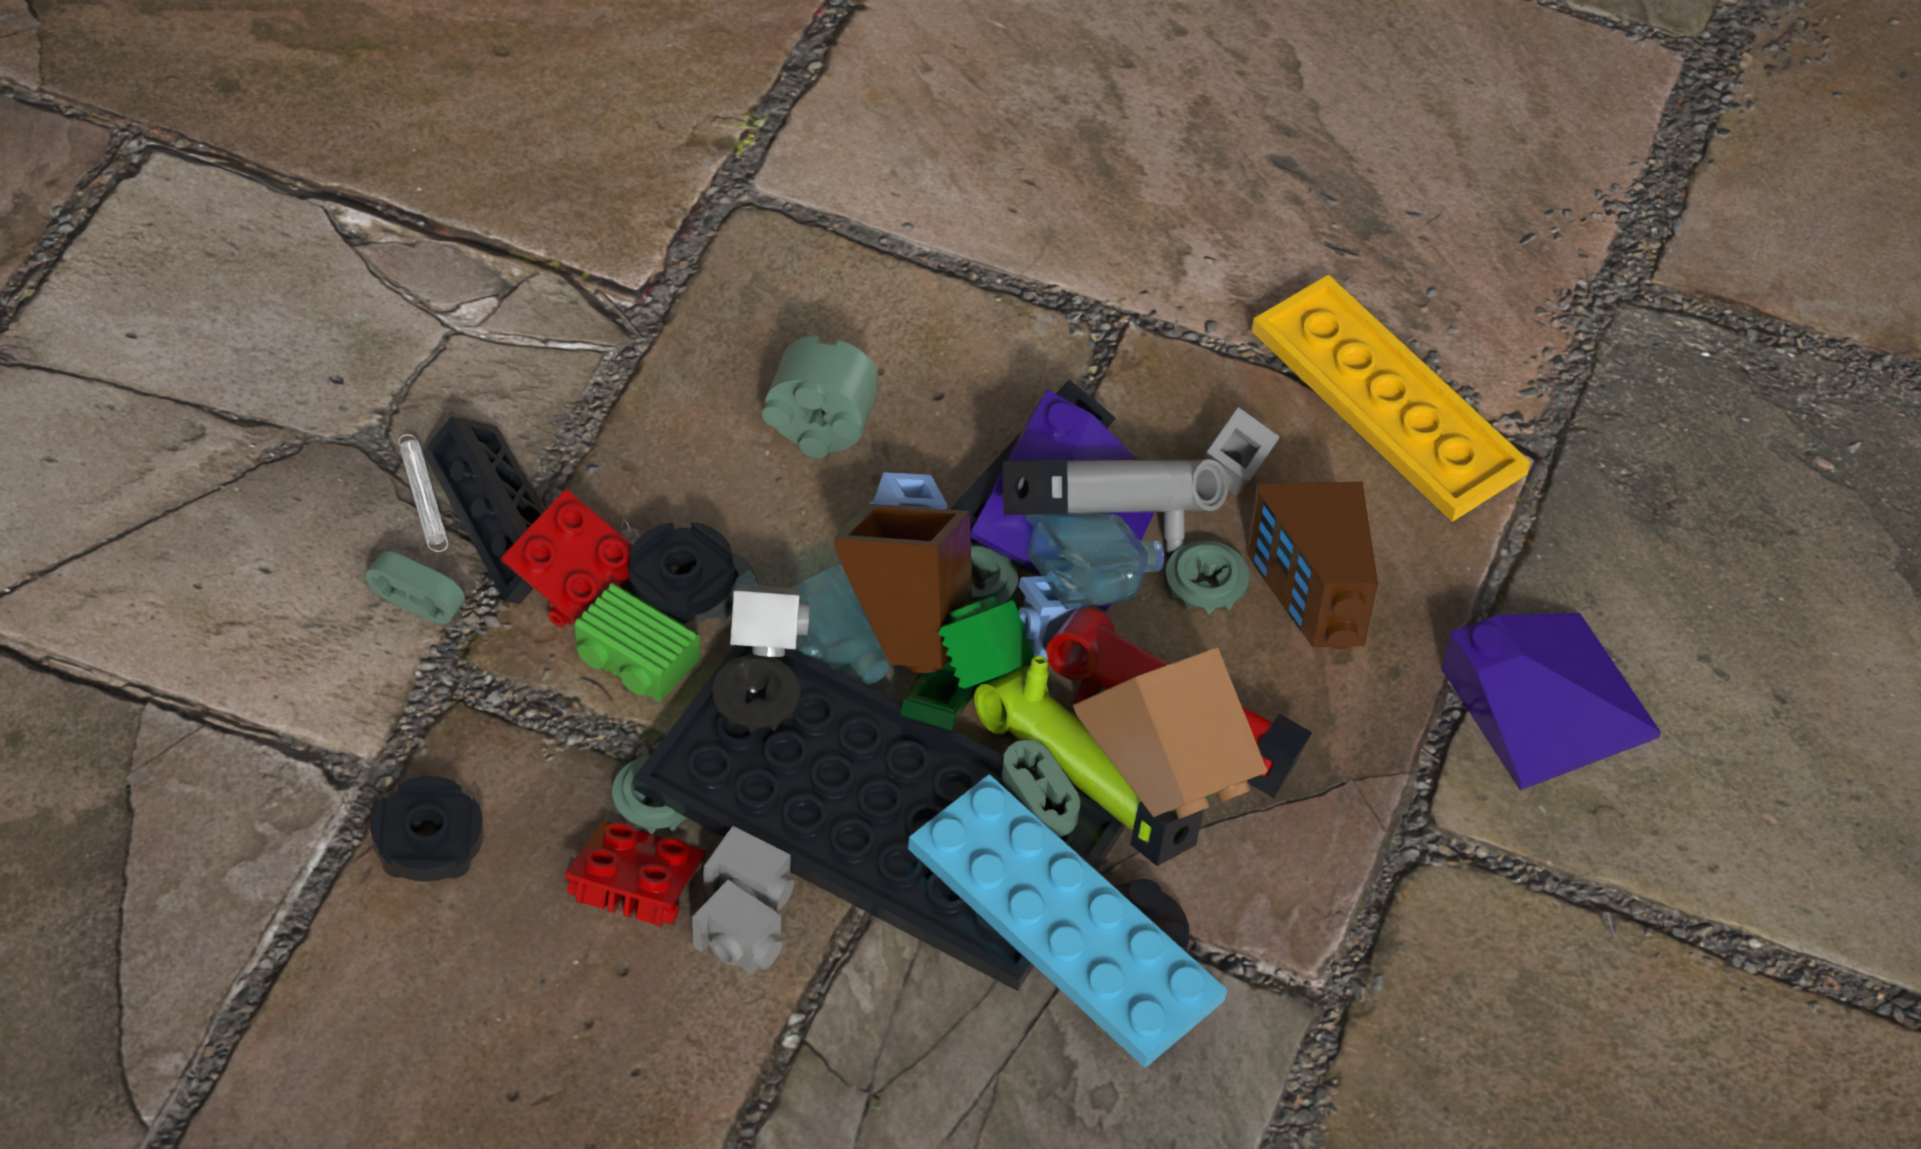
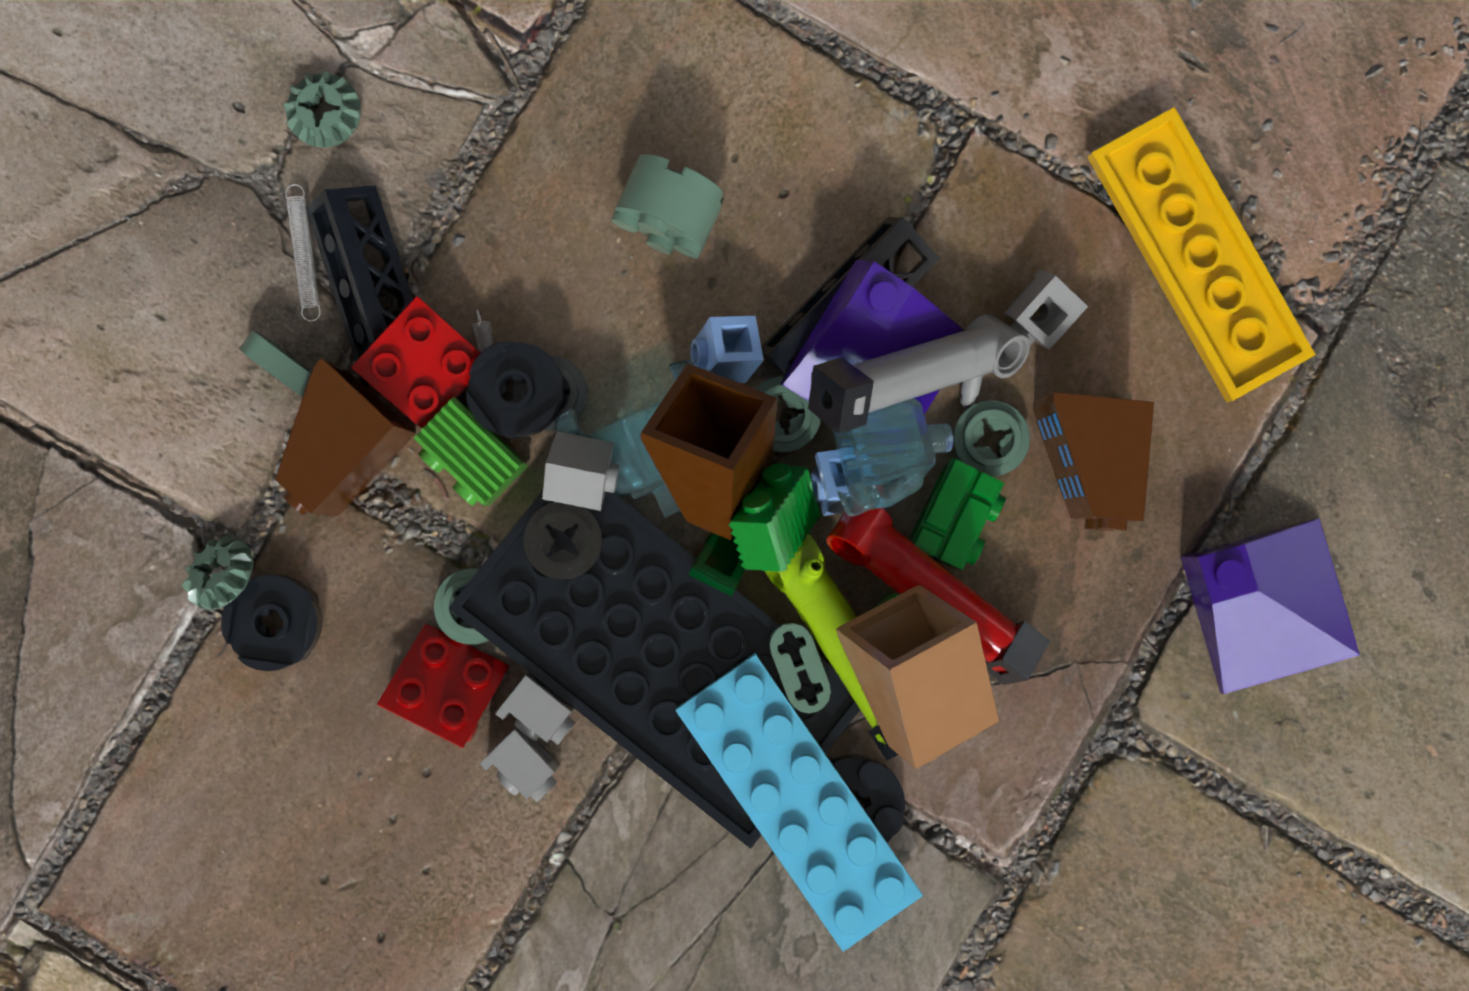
camera: 15 degrees right, 35 degrees up
(361, 783) = (223, 585): none -> sand green gear
(450, 374) = (335, 125): none -> sand green gear
(498, 632) = (337, 442): none -> reddish brown slope
(1189, 622) = (957, 514): none -> green brick

